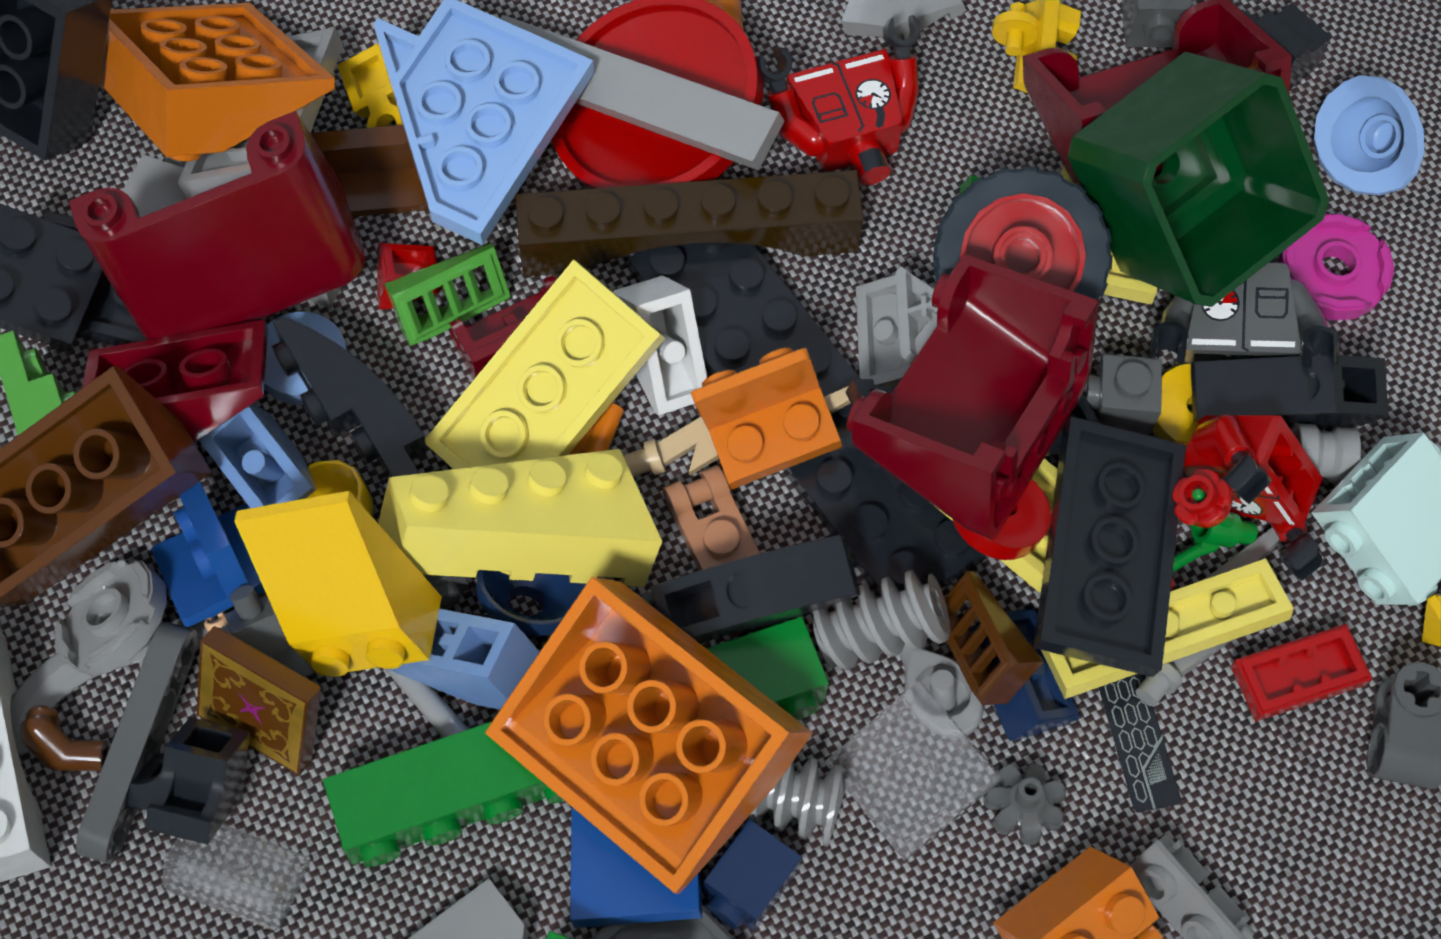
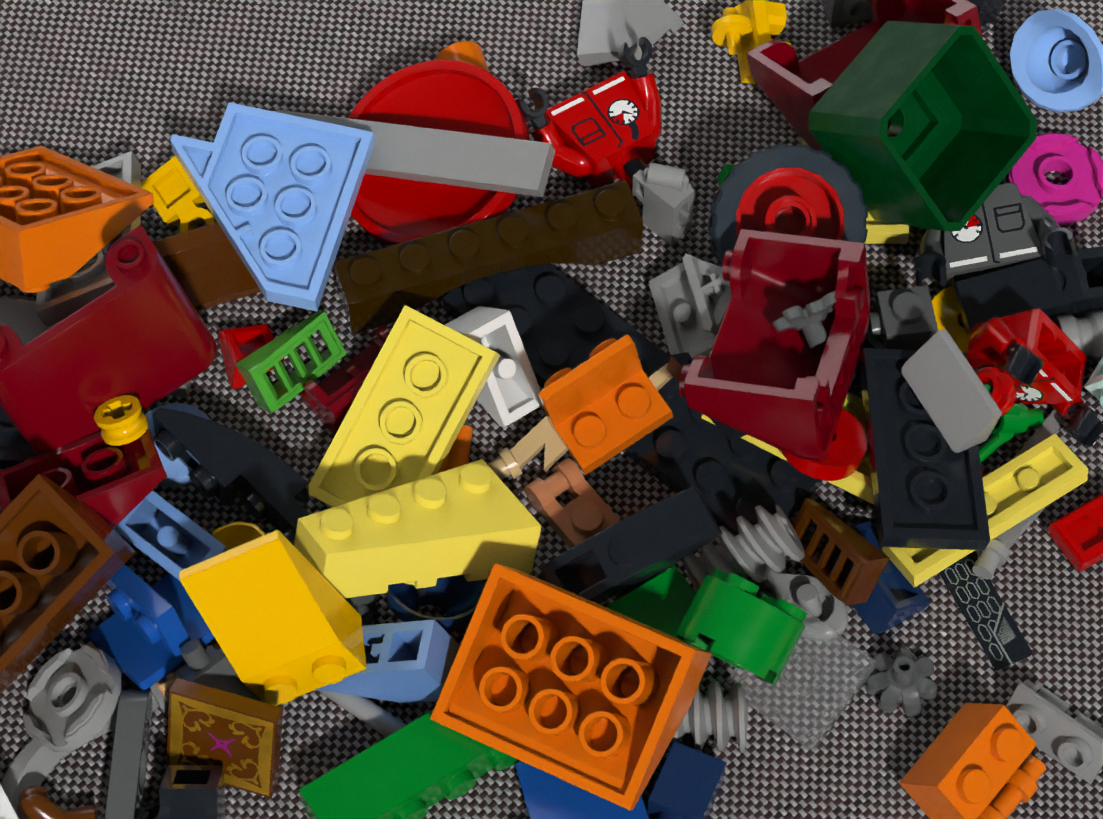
camera: 10 degrees left, 5 degrees down
(236, 322) = (121, 420): none -> yellow bush
(855, 712) = (741, 627): none -> green brick
(896, 201) = (666, 200): none -> light grey piece
(1015, 373) = (808, 319): none -> dark grey plant
(1157, 490) = (951, 392): none -> light grey slope

